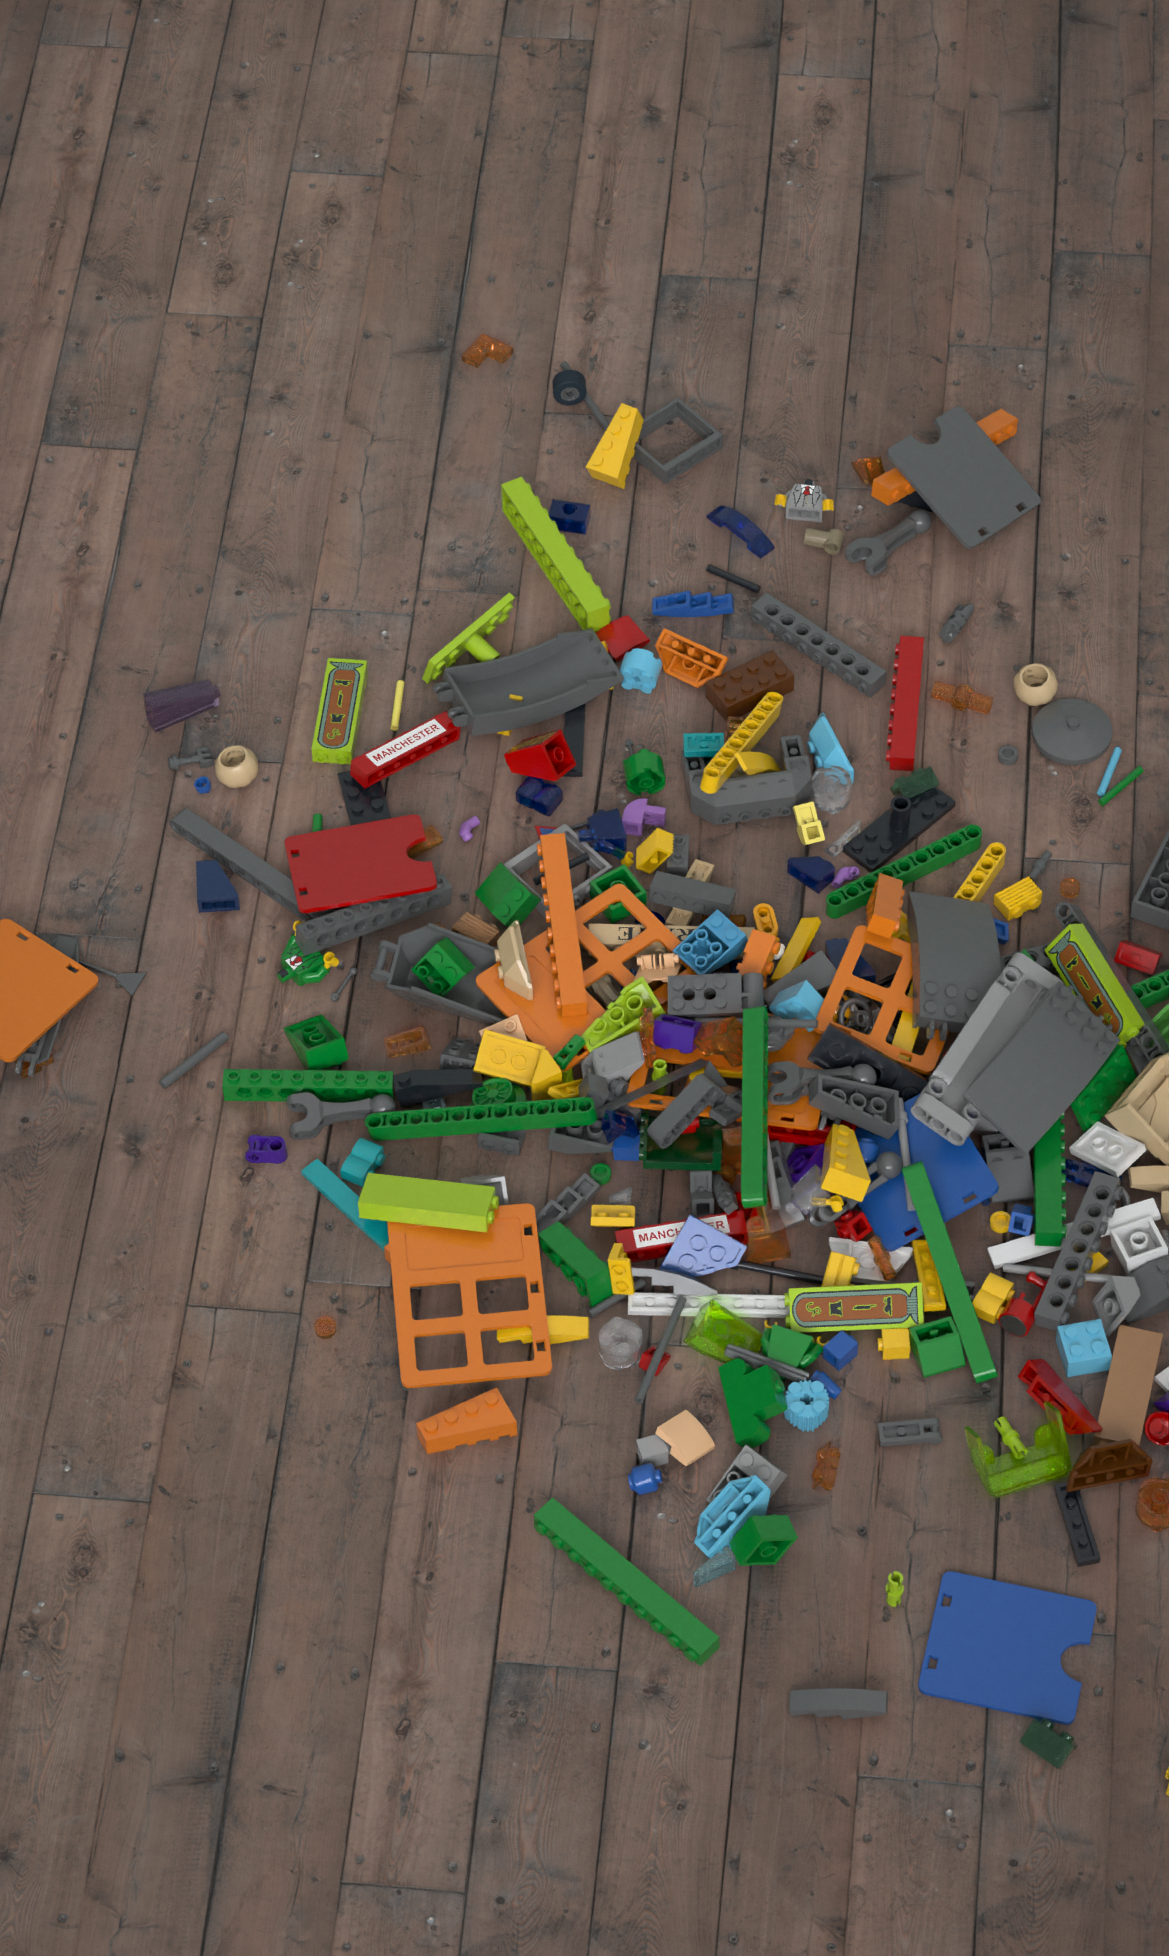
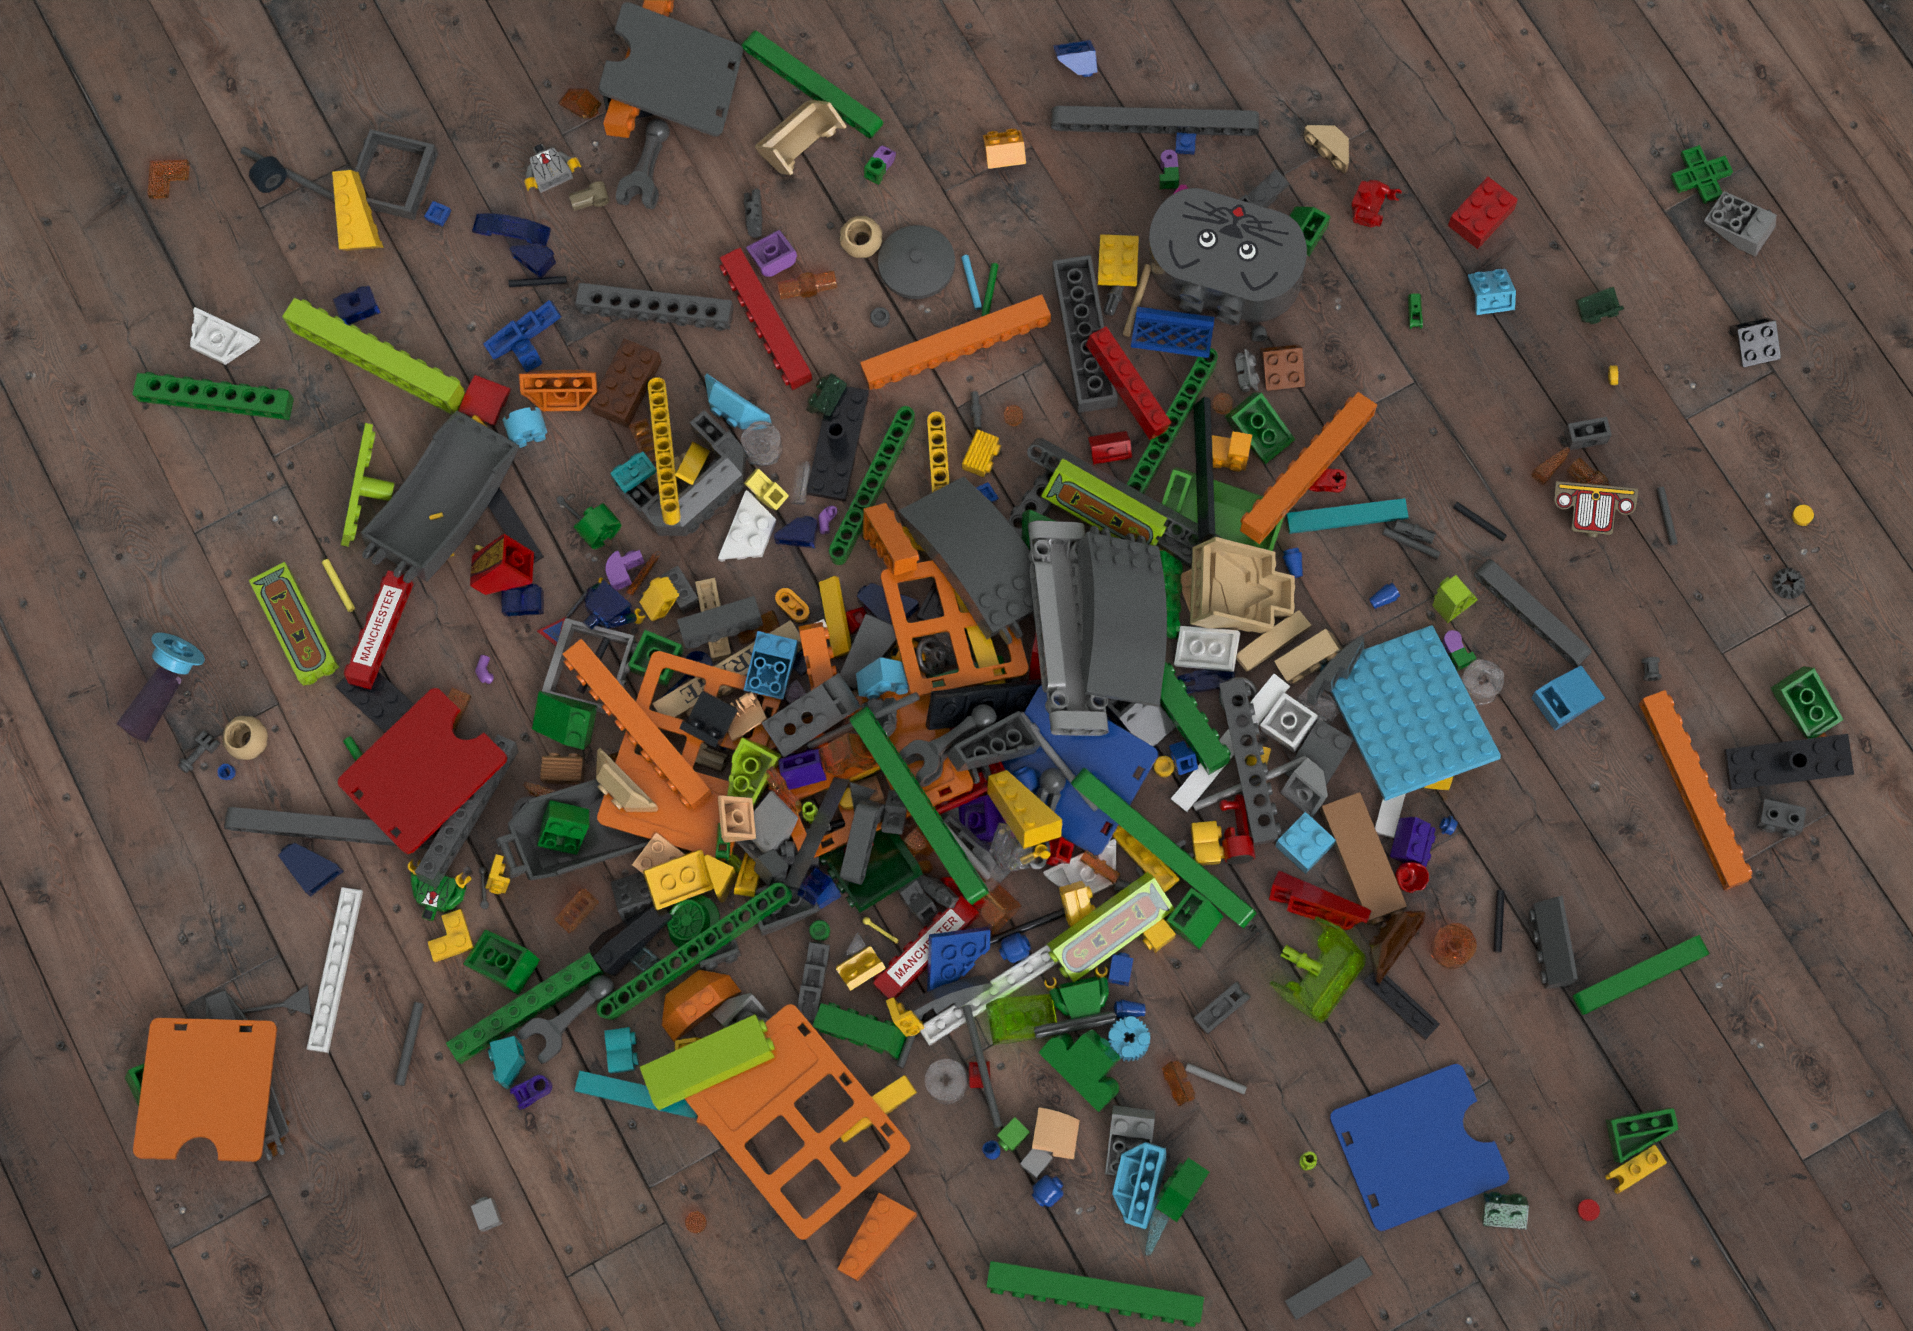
camera: 30 degrees left, 20 degrees up
(158, 1217) = (486, 1214): none -> light grey brick
(176, 974) = (334, 970): none -> white tile
(228, 676) = (175, 653): none -> medium azure wheel
(265, 1111) = (508, 1060): none -> teal slope
(290, 1009) = (457, 938): none -> yellow plate
(360, 974) = (495, 882): none -> yellow bracket
(403, 519) = (279, 409): none -> green brick
(439, 482) = (219, 338): none -> white wing
(454, 1161) = (695, 1001): none -> orange wedge
(590, 1034) = (736, 818): none -> light nougat slope
(619, 1420) = (991, 1150): none -> blue hinge
(627, 953) = (710, 719): none -> black bracket
(642, 834) = (647, 572): none -> orange piece
(646, 1189) = (866, 920): none -> light yellow hinge
(646, 1419) = (1012, 1135): none -> bright green brick
(683, 623) = (527, 355): none -> blue bracket
(687, 487) = (437, 213): none -> blue plate
(743, 558) = (534, 258): none -> clear blue slope
(759, 1280) = (1015, 947): none -> blue head
(770, 850) = (748, 531): none -> white wing
(862, 1485) = (1216, 1078): none -> light grey bar
(948, 660) = (772, 254): none -> medium lavender slope
(1040, 585) = (797, 133): none -> tan windscreen
(1060, 805) = (956, 342): none -> orange brick
(1081, 556) = (812, 83): none -> green beam
(1093, 642) = (879, 164): none -> green leg
(1128, 1789) = (1588, 1210): none -> red tile

